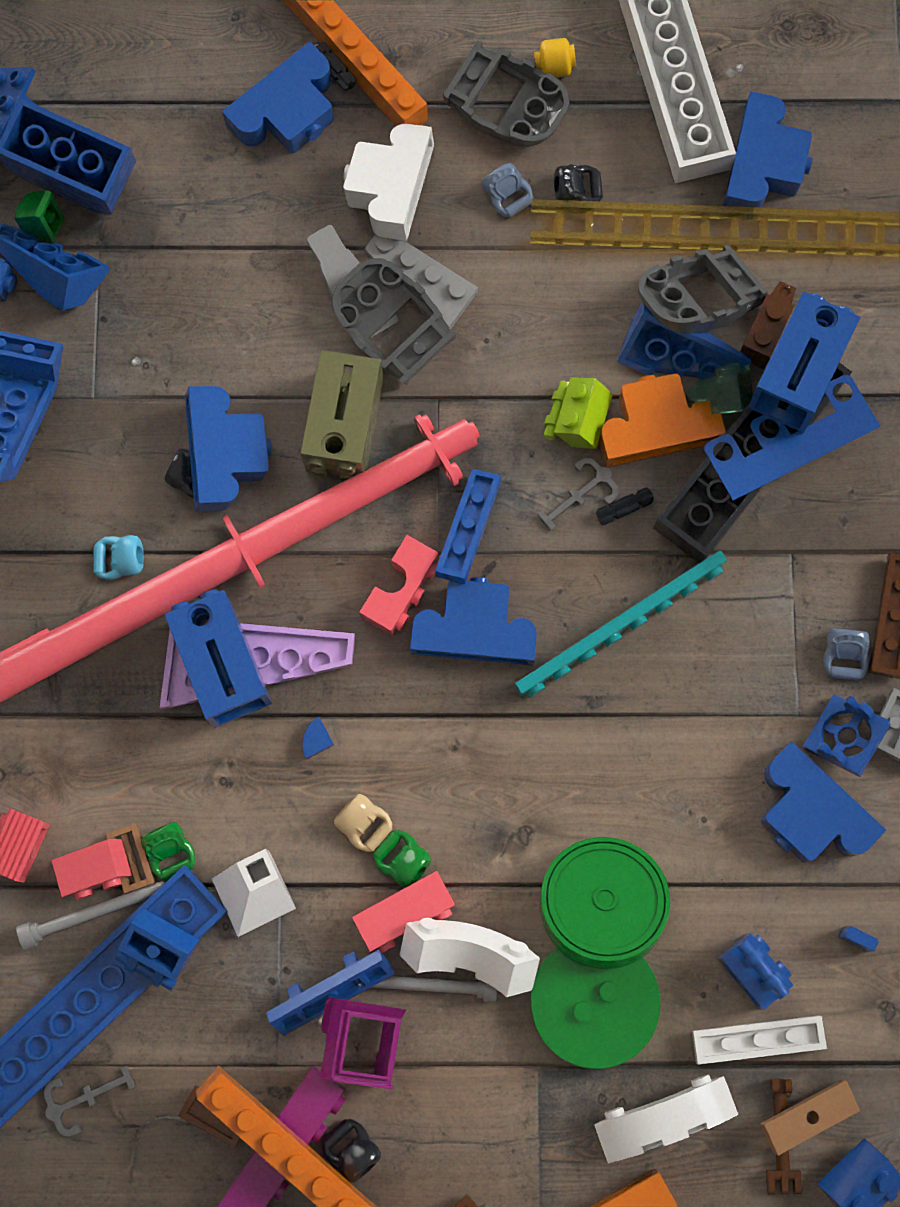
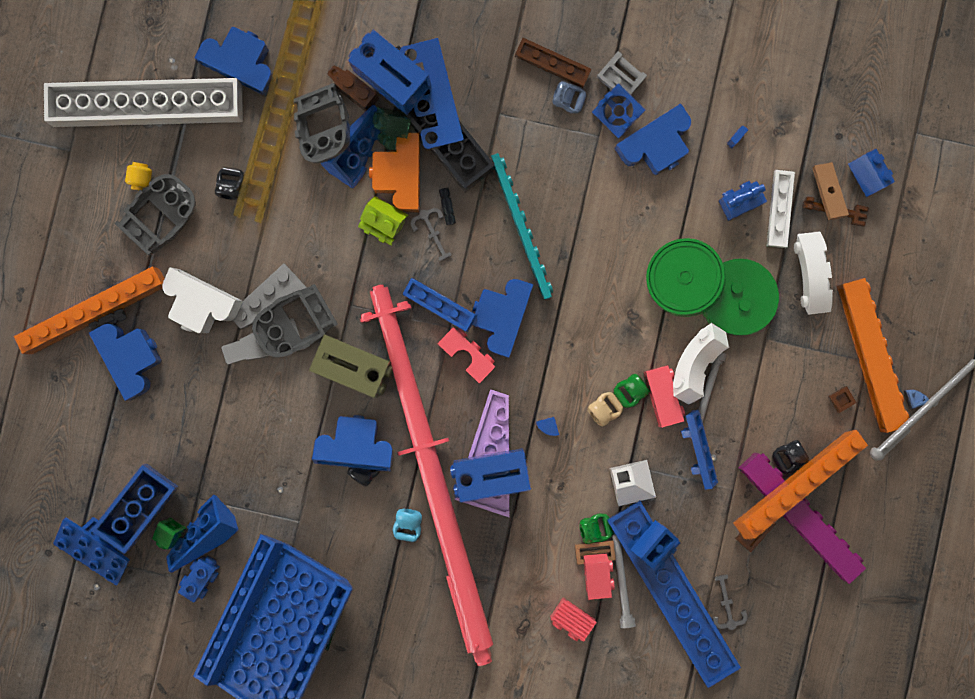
camera: 80 degrees left, 10 degrees up
(336, 1026) = (722, 449): magenta piece -> none
(502, 184) = (217, 230): sand blue piece -> none

